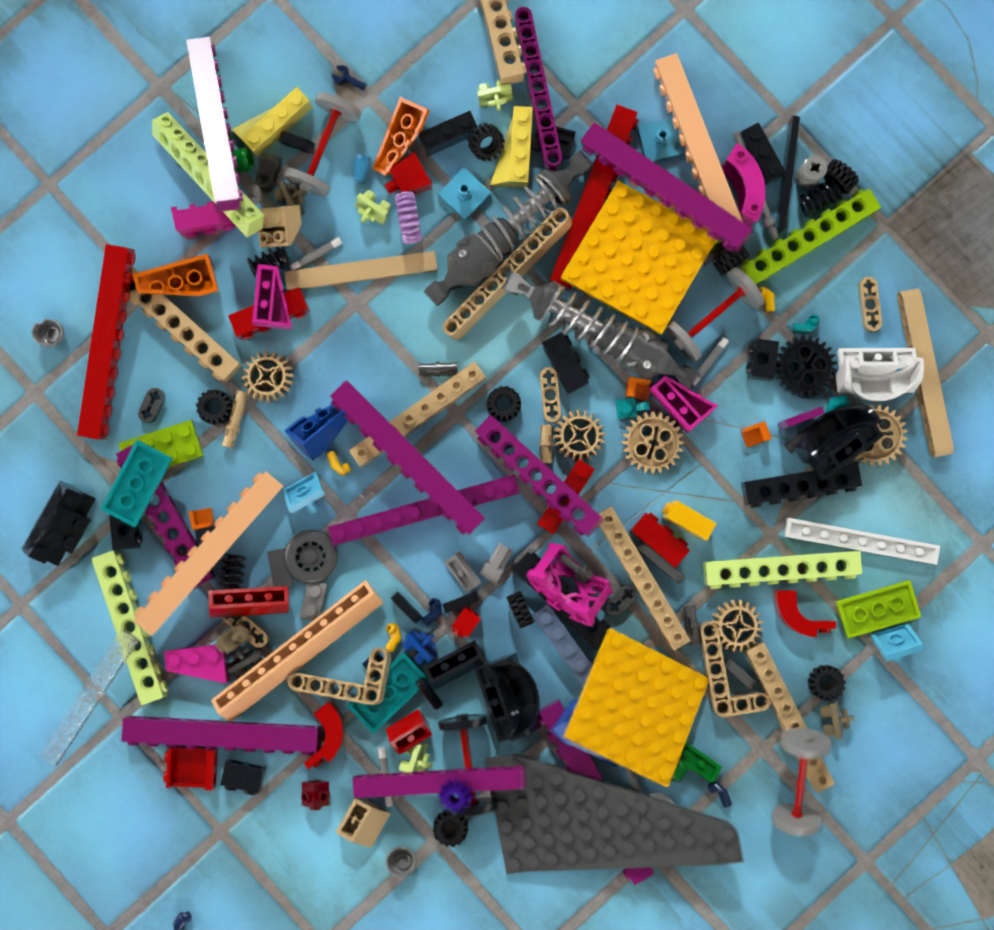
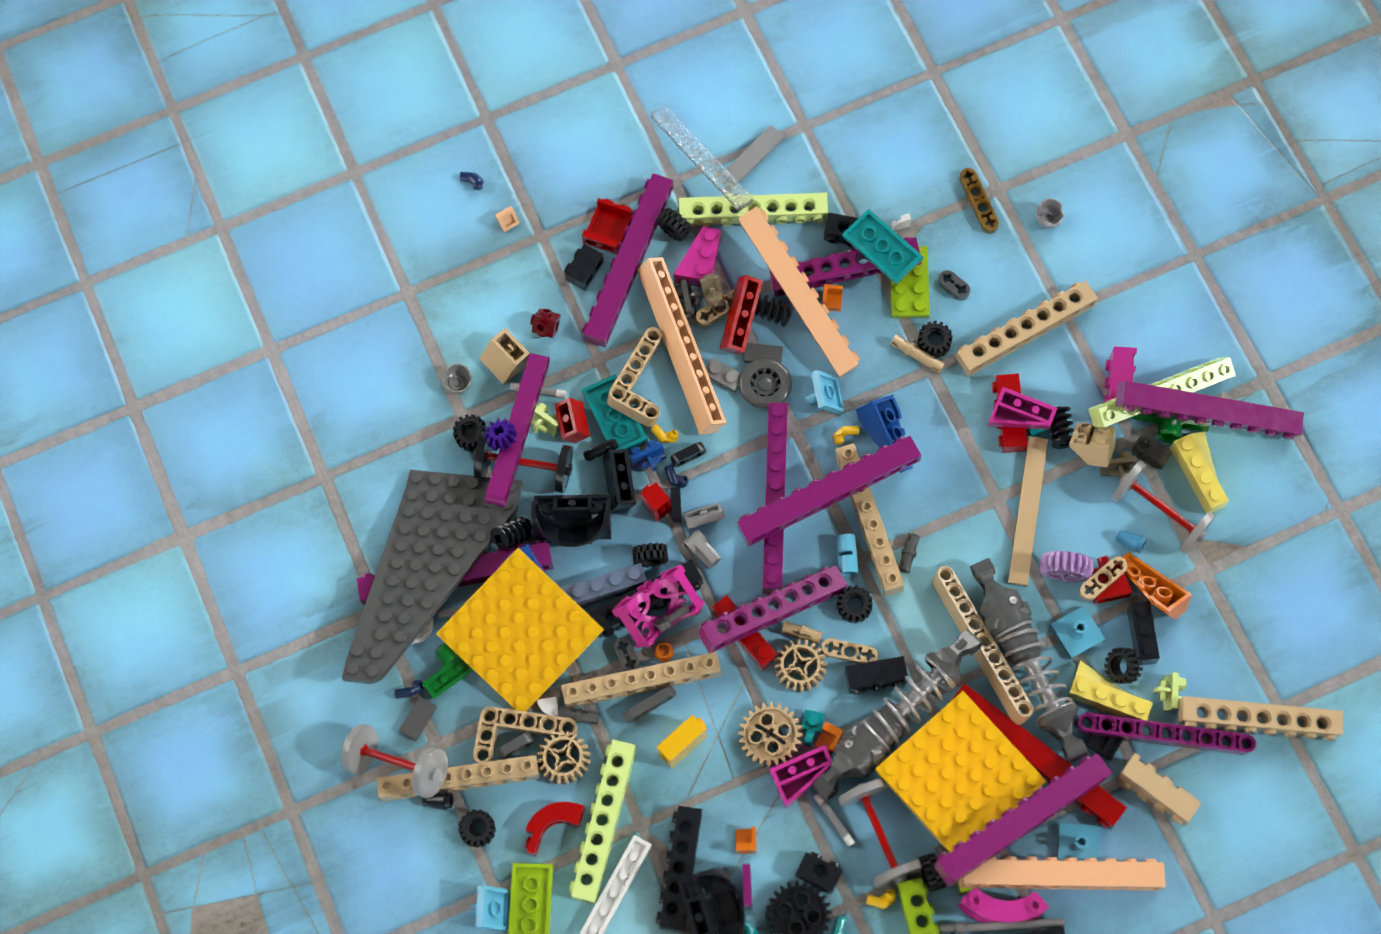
camera: 115 degrees right, 15 degrees down
(53, 407) = (982, 199): none -> pearl gold beam
(59, 525) = (867, 174): black piece -> none
(68, 645) = (755, 153): none -> light grey tile
(99, 473) = (904, 222): none -> white tile
(106, 342) = (1025, 259): red brick -> none
(171, 701) = (673, 224): none -> black tyre
(185, 277) = (1065, 347): orange wedge -> none
(214, 873) = (507, 219): none -> light nougat tile
(257, 364) = (962, 387): tan gear -> none
(296, 142) = (1174, 487): black beam -> none
(315, 254) = (1057, 474): light grey bar -> none
(334, 728) = (597, 357): red arch -> none
(347, 78) = (1228, 554): dark blue bar -> none
(371, 210) = (1094, 533): yellowish green hips -> none
(395, 178) = (1117, 573): none -> tan beam
(459, 424) = (847, 555): none -> medium azure pin
(542, 750) = (511, 533): none -> black piece
(590, 80) = (1158, 790): none -> tan wedge
(606, 566) = (664, 652): none -> orange plate
(660, 539) = (672, 711): red brick -> none
(692, 656) = (549, 706): none -> white tile
(743, 775) = (417, 718): none -> dark grey tile
(812, 721) = (441, 800): none -> black cone
(835, 729) = (438, 826): dark tan hips -> none

